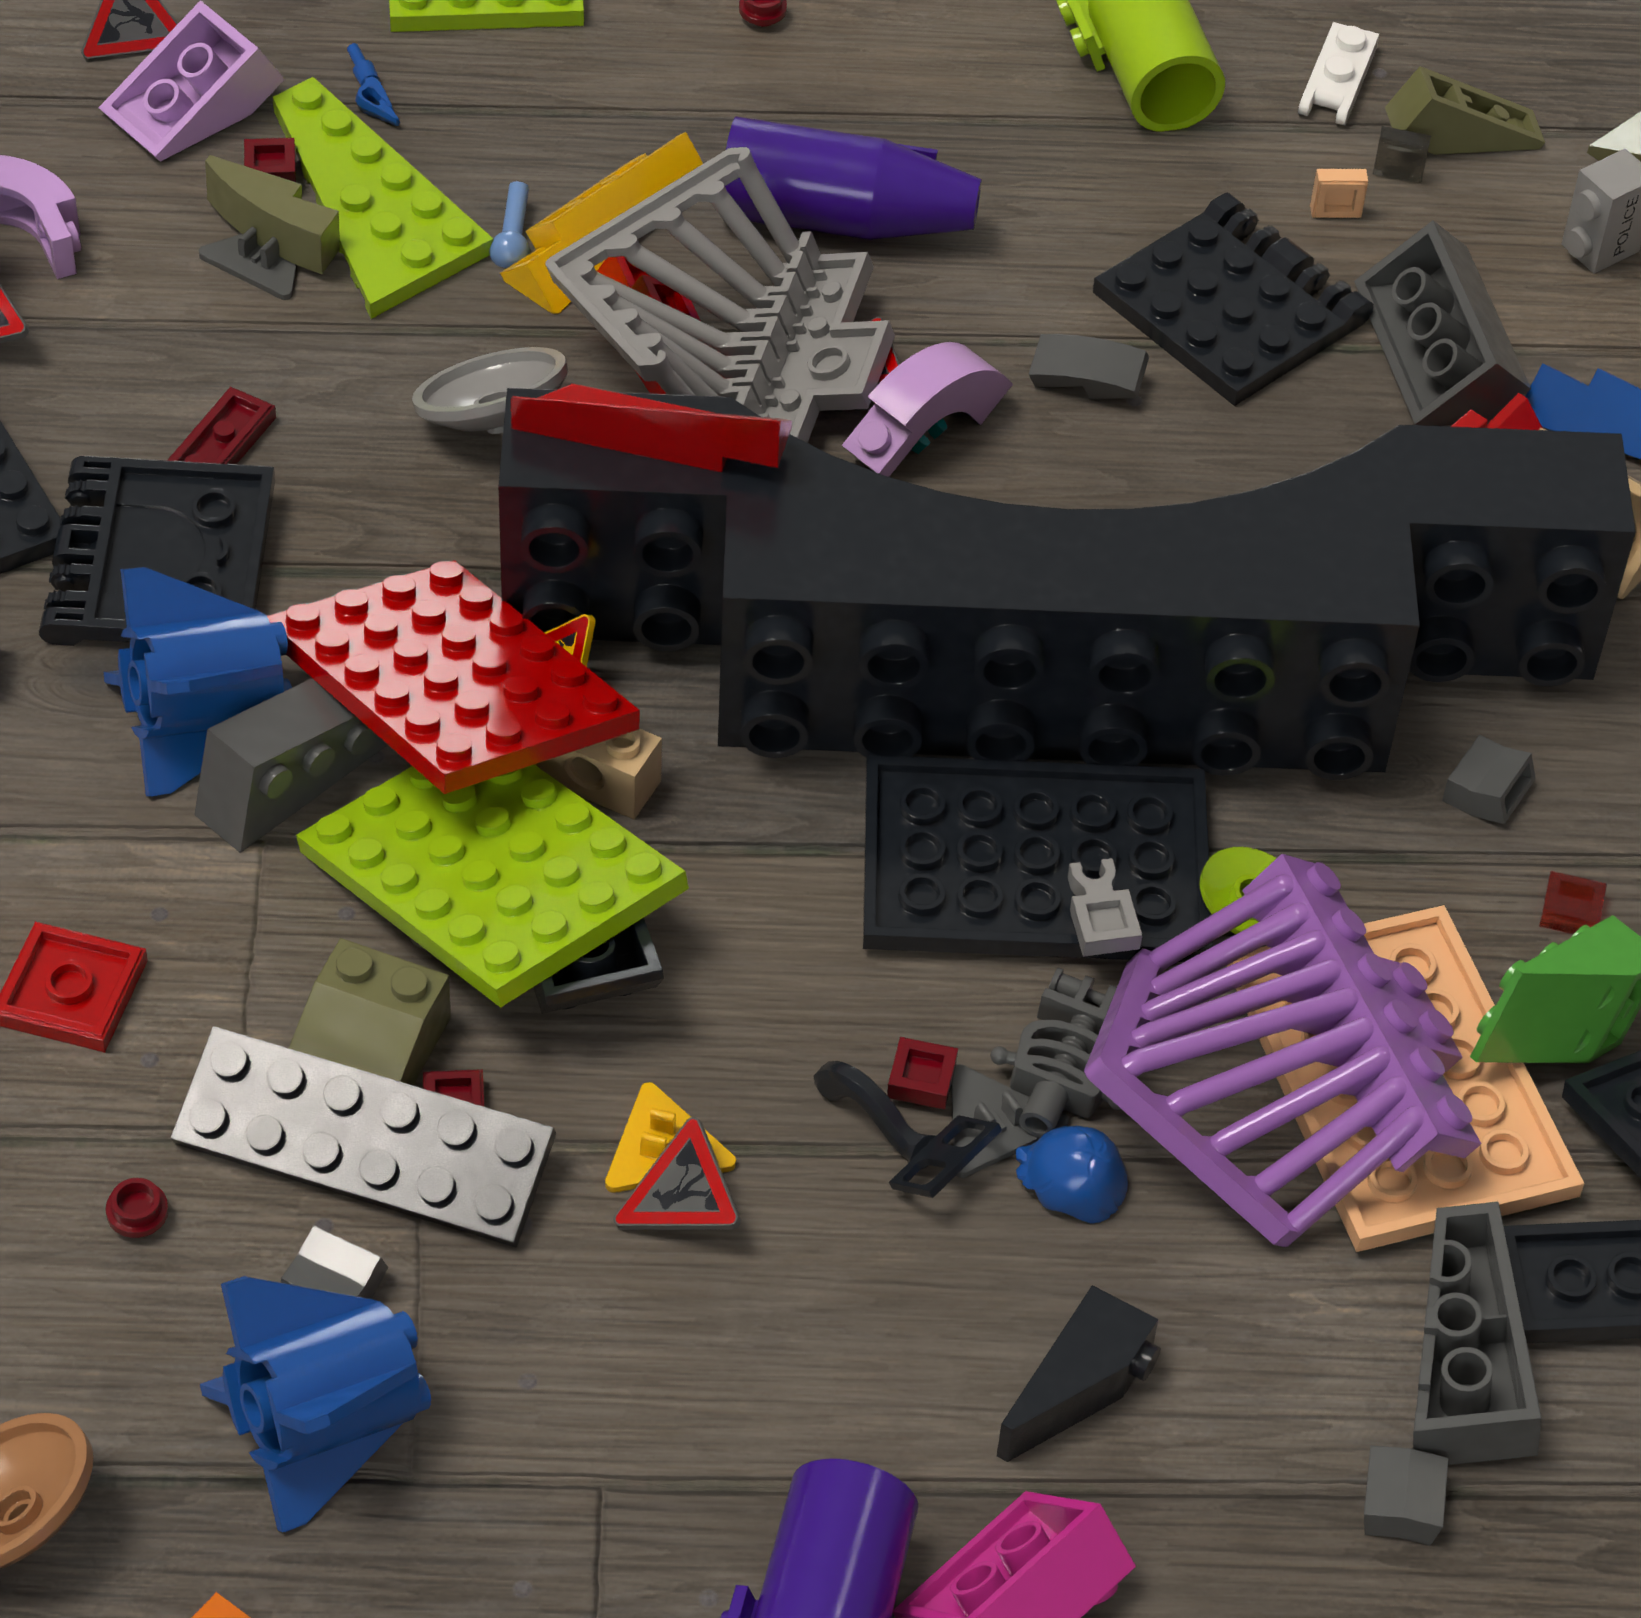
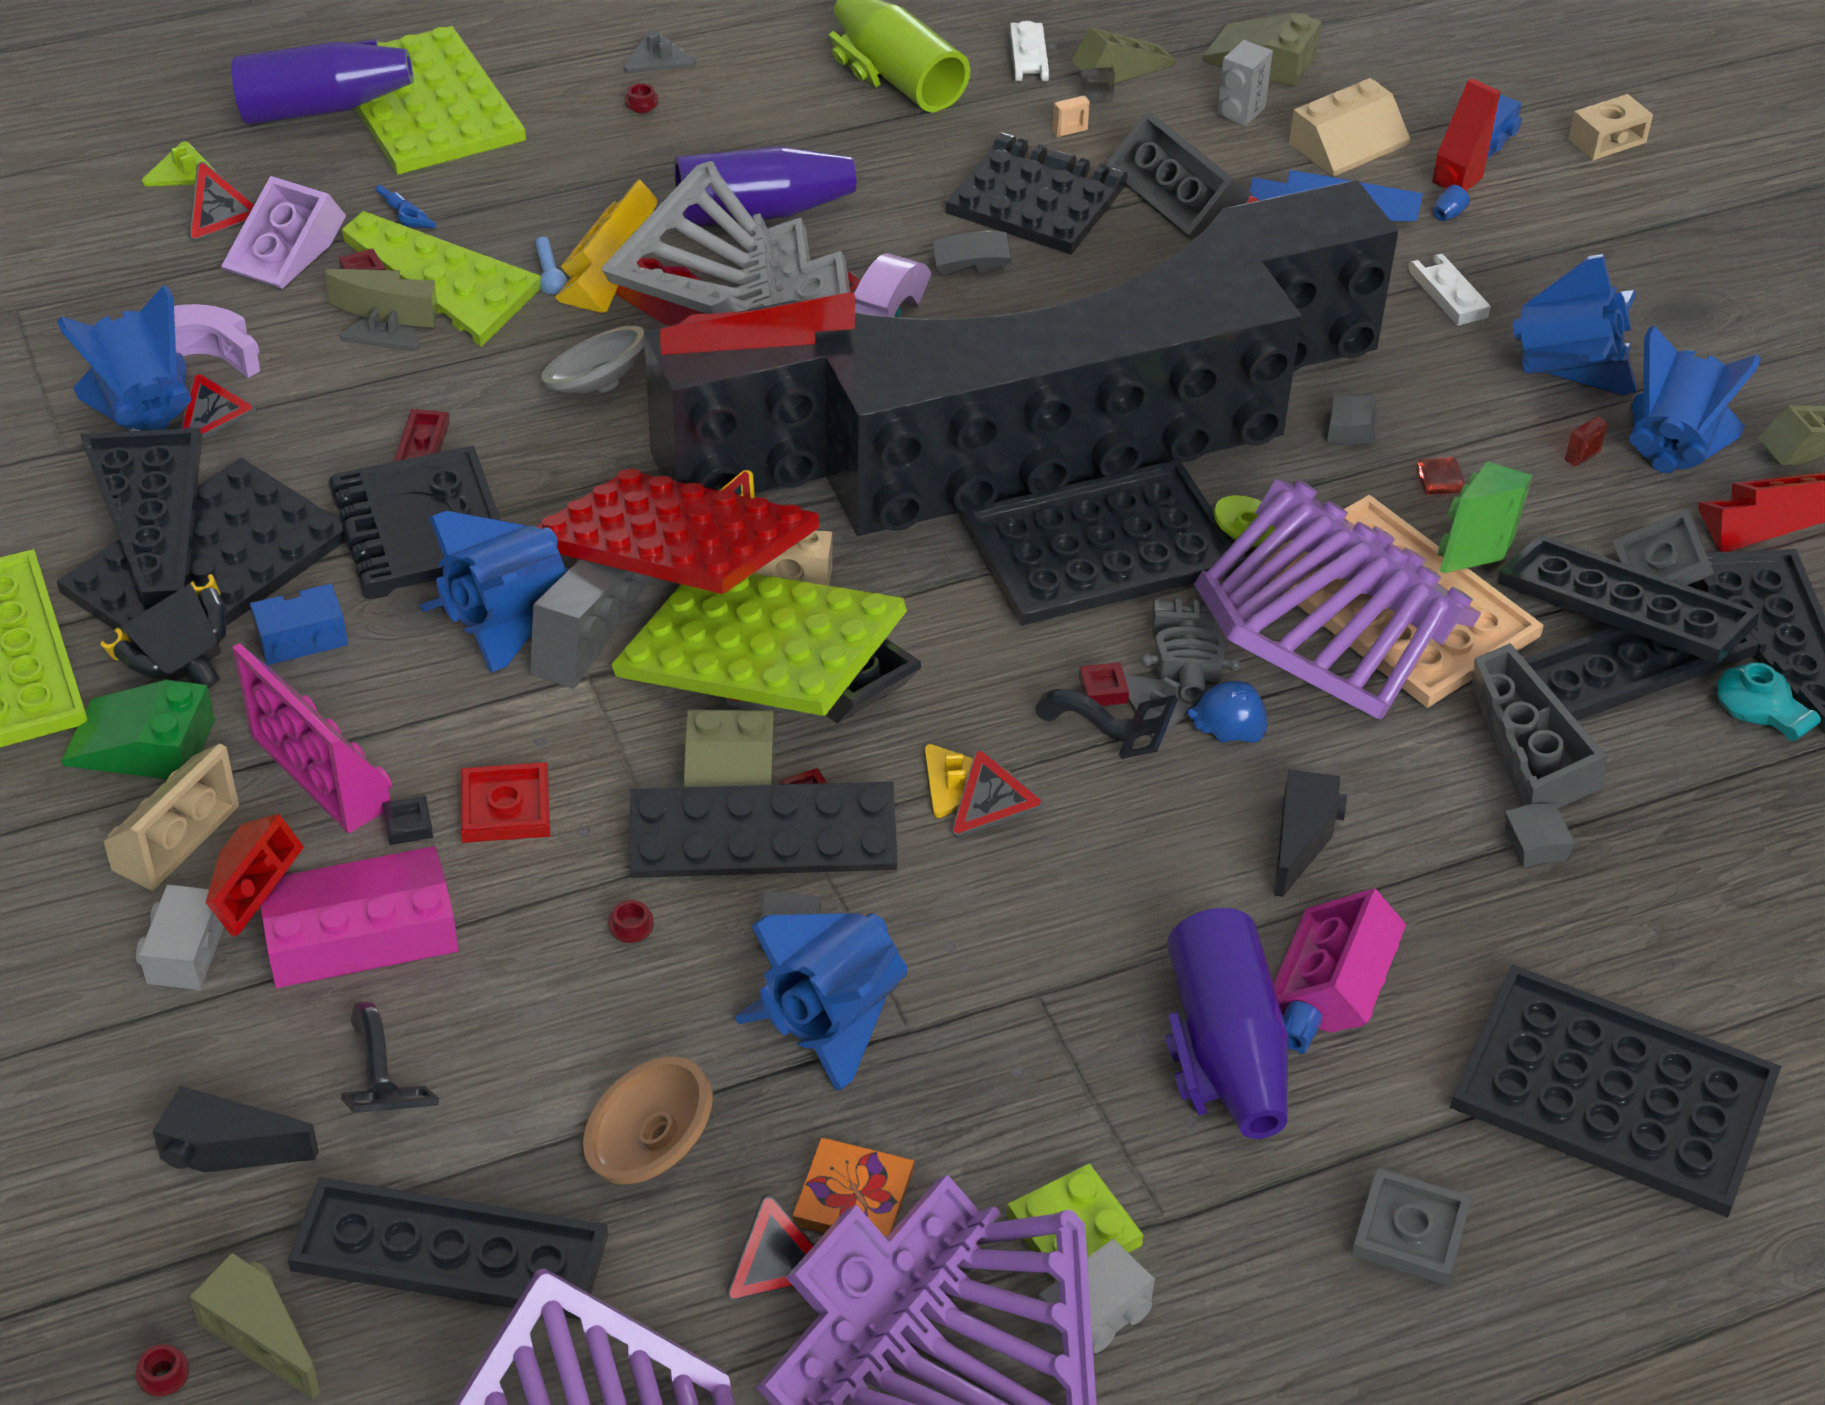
camera: 20 degrees left, 5 degrees down
(1101, 916) = (1168, 557): light grey plate -> none

